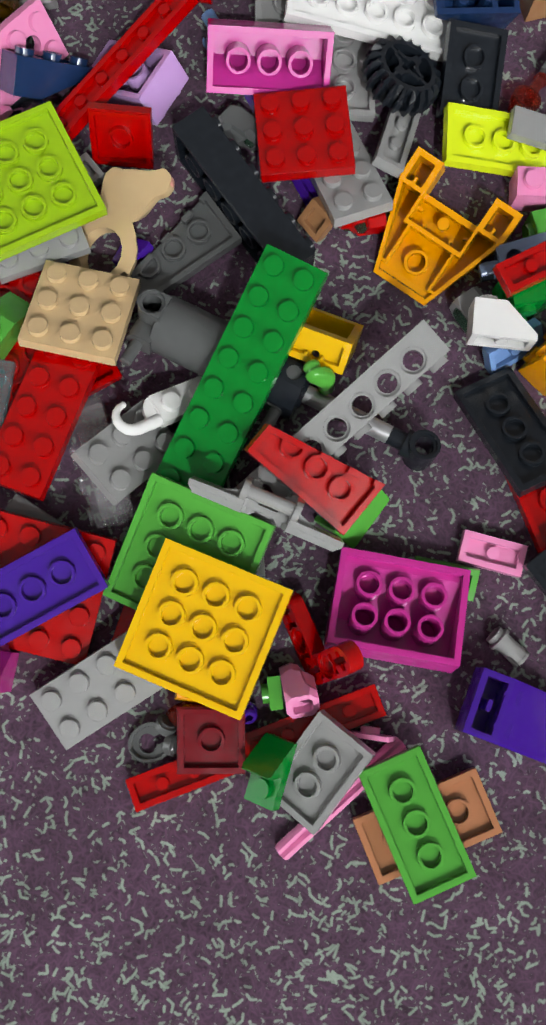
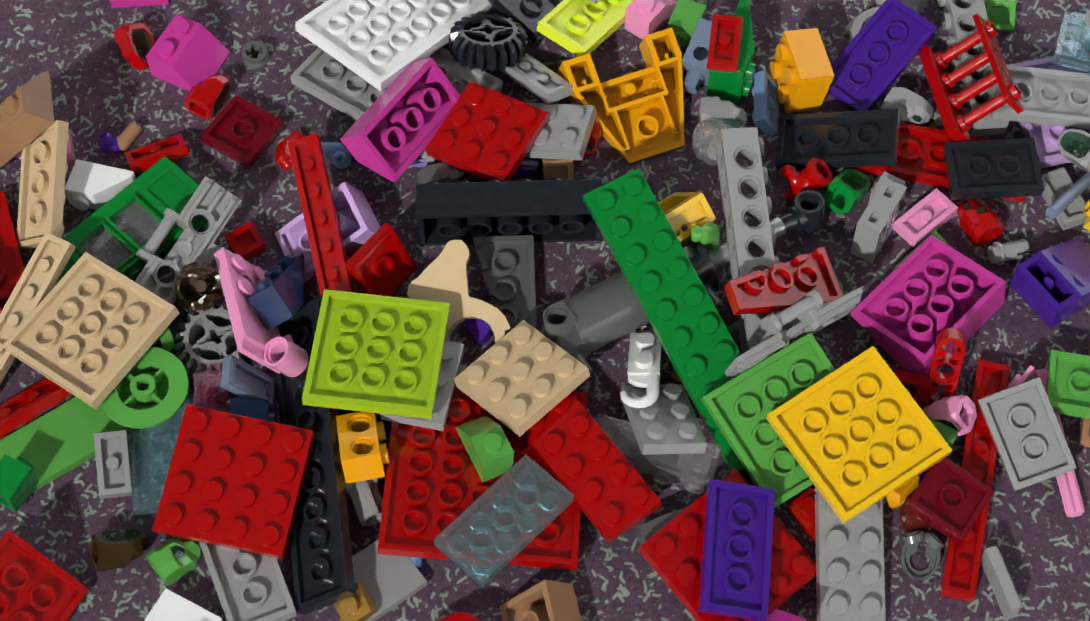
camera: 50 degrees left, 20 degrees down
(82, 21) = (245, 241): none -> red plate
(166, 827) = (1001, 582): none -> light grey tile
(269, 770) = (1004, 470): green slope -> none
(445, 322) = (703, 139): none -> clear piece
(459, 513) = (878, 217): none -> light grey piece
(460, 433) = (814, 176): none -> red piece
(469, 470) = (846, 191): none -> green rock
(498, 325) = (748, 96): white slope -> none
(520, 603) = (979, 222): none -> red rock

